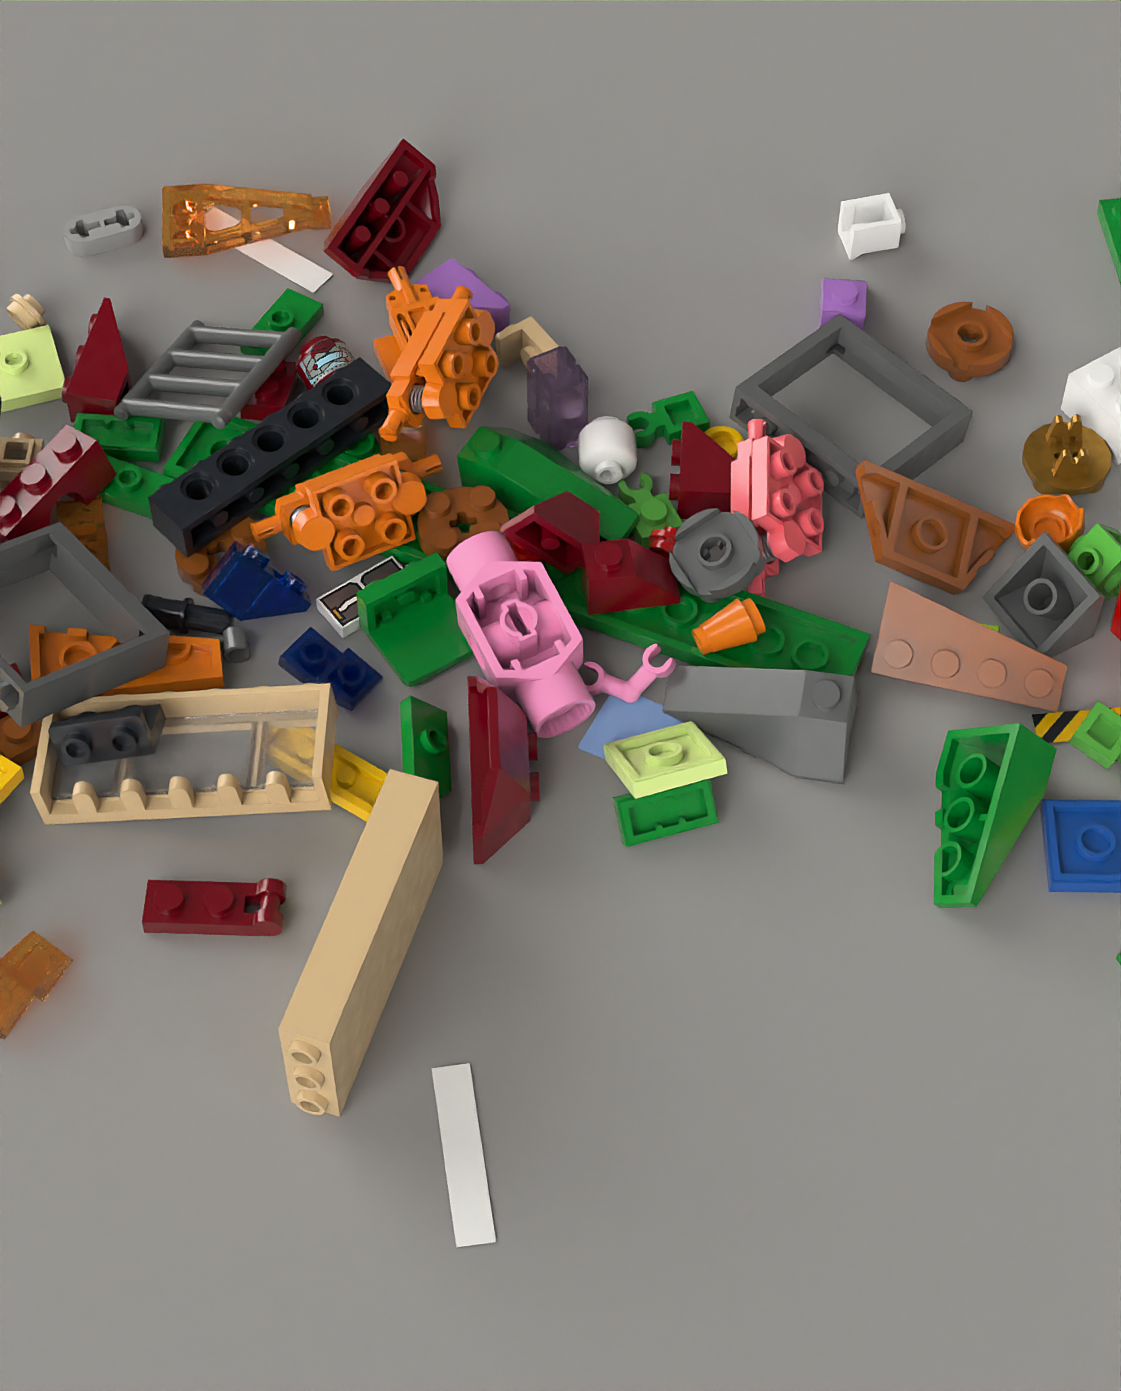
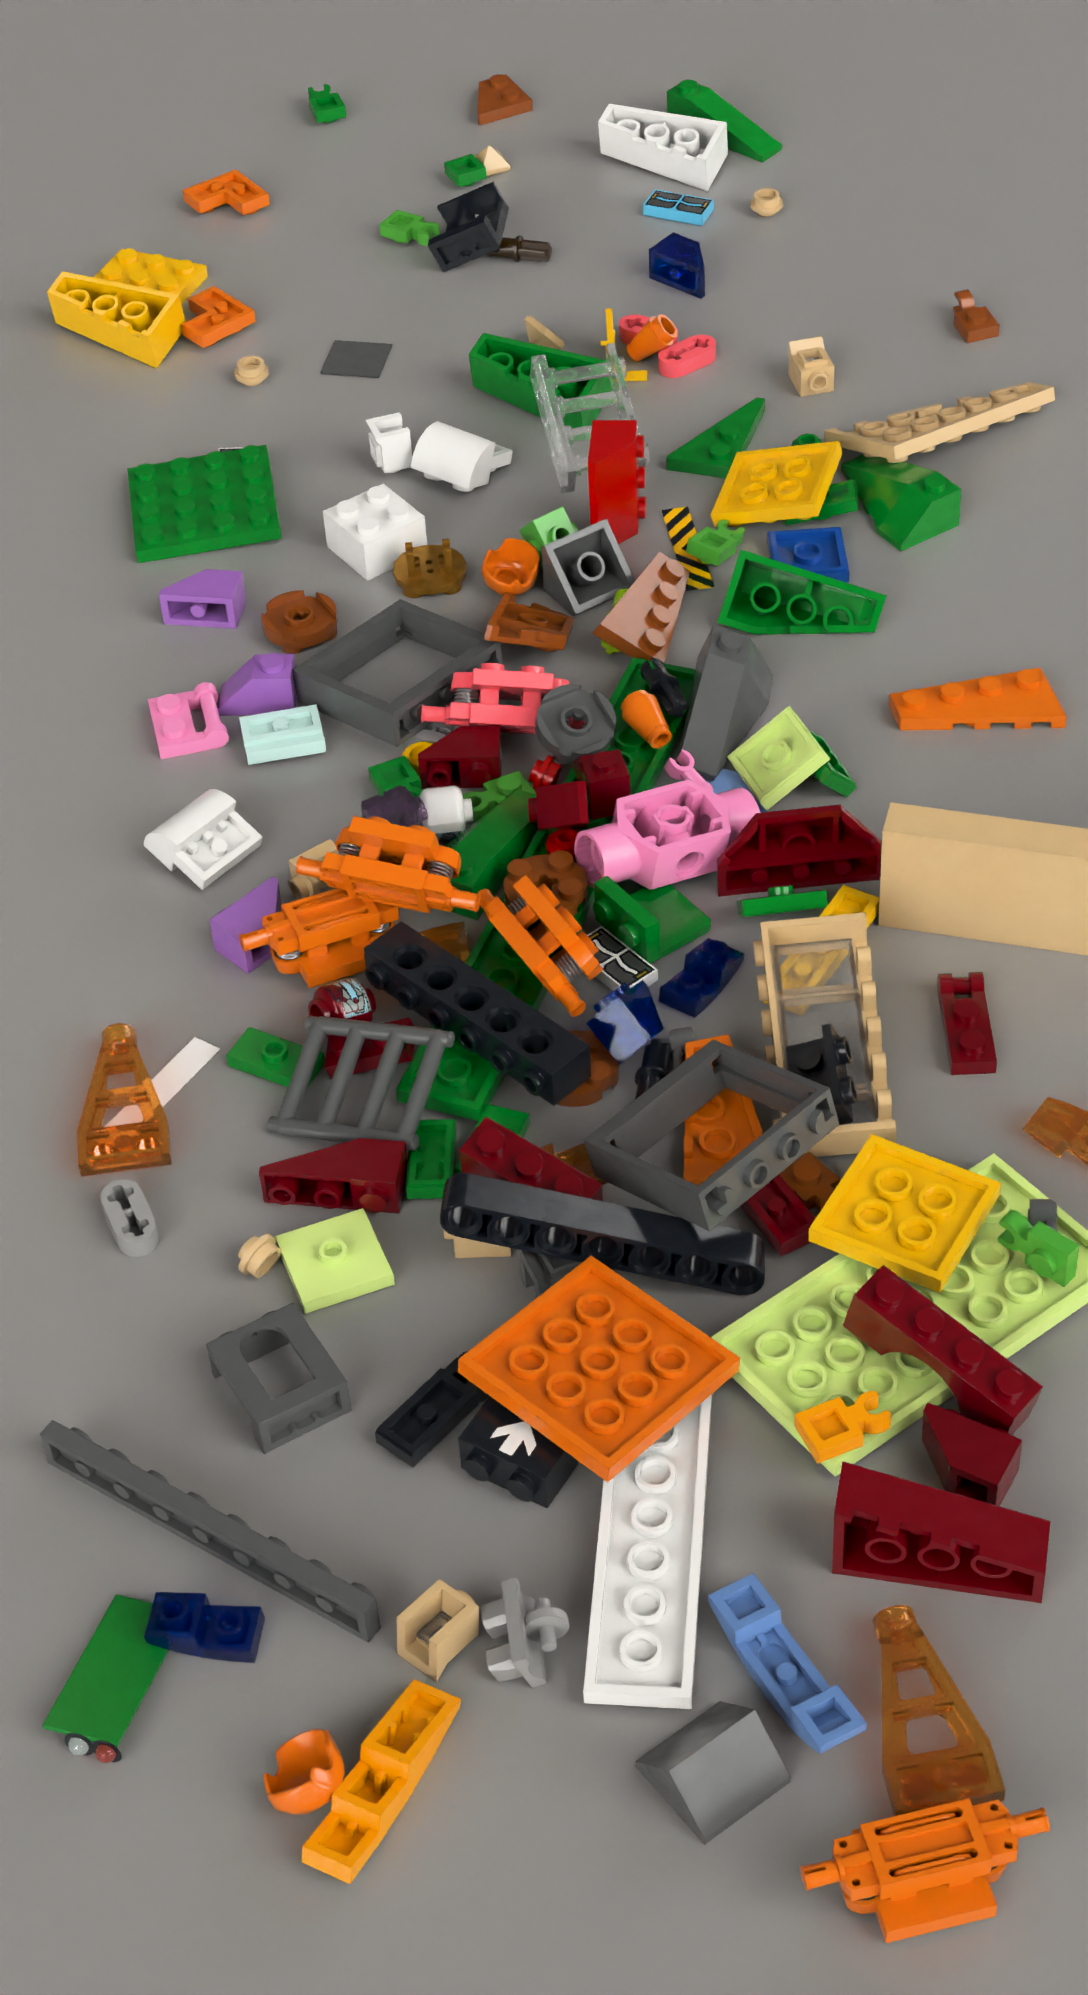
camera: 90 degrees left, 10 degrees down
(388, 218) = (139, 986): dark red wedge -> none
(594, 261) = (204, 838): none -> white brick
(763, 323) = (282, 734): none -> light aqua plate
(777, 1012) = (978, 702): none -> orange wing
(787, 648) = (664, 687): none -> black axle
(801, 251) = (175, 726): none -> bright pink plate
(870, 225) = (160, 666): white window -> none
(1005, 261) = (205, 600): none -> medium lavender slope

